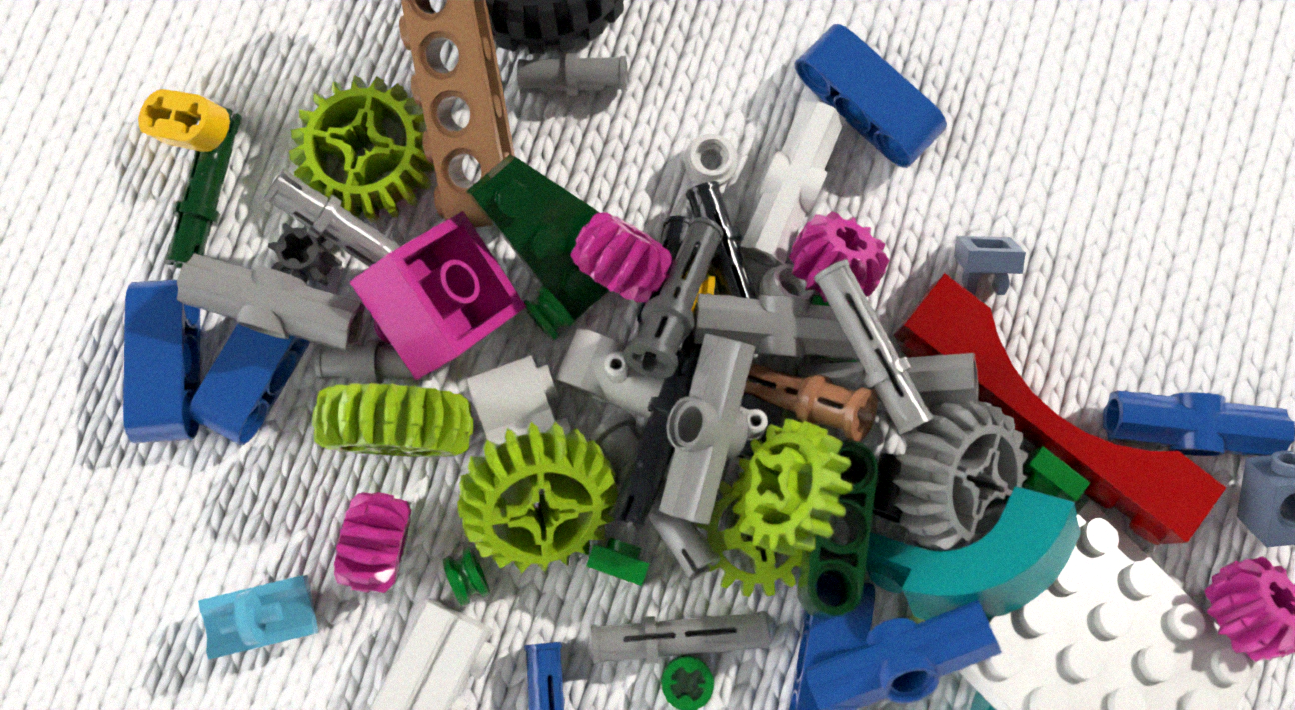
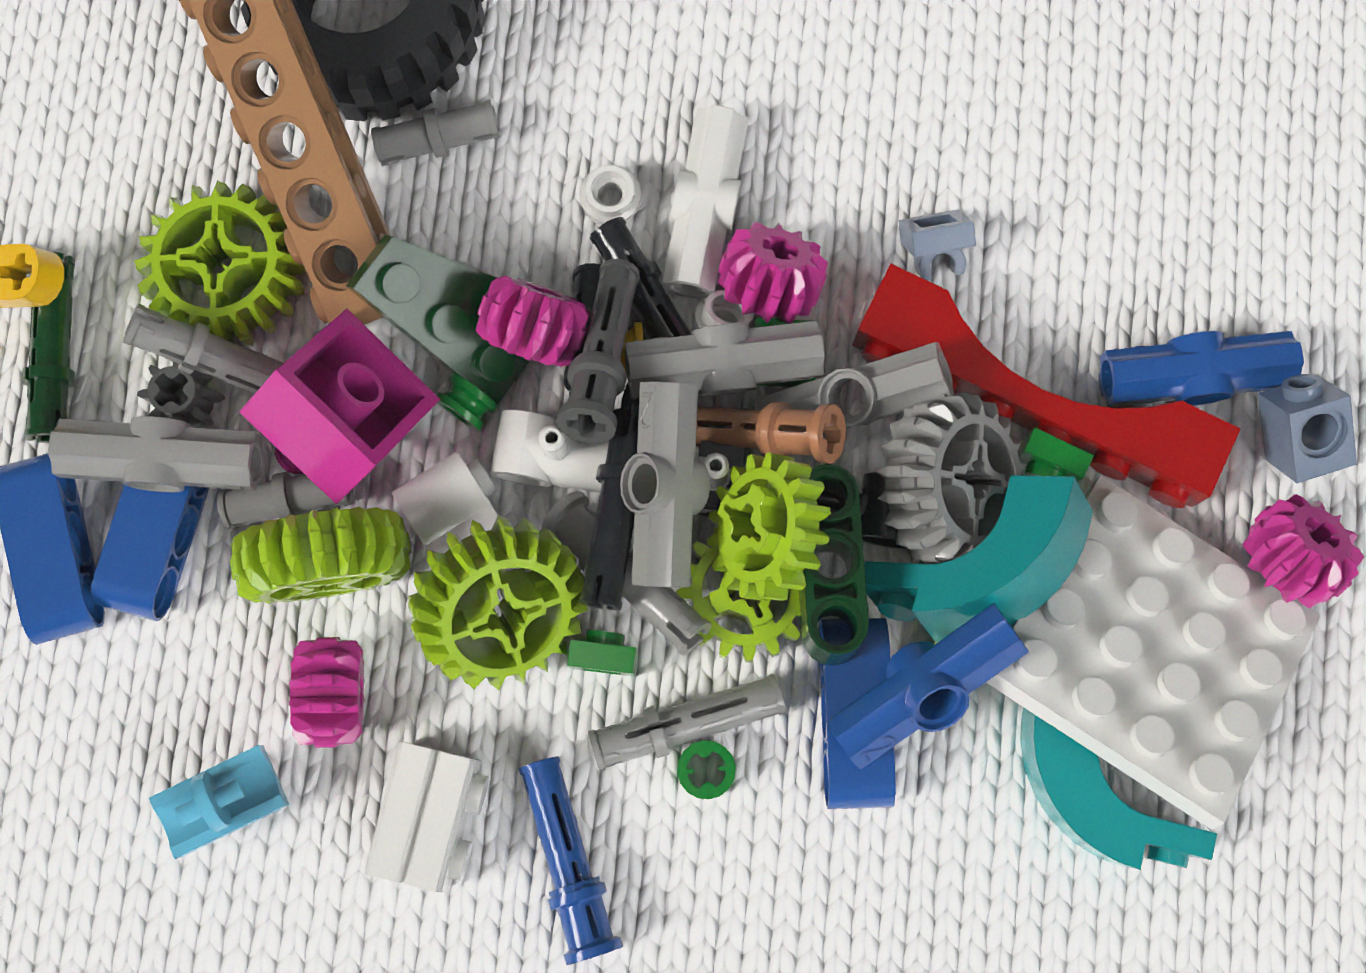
camera: 10 degrees left, 0 degrees up
(466, 576) = (438, 708): green bush -> none
(871, 95) = (771, 86): blue beam -> none
(905, 411) = (775, 300): light grey pin -> none

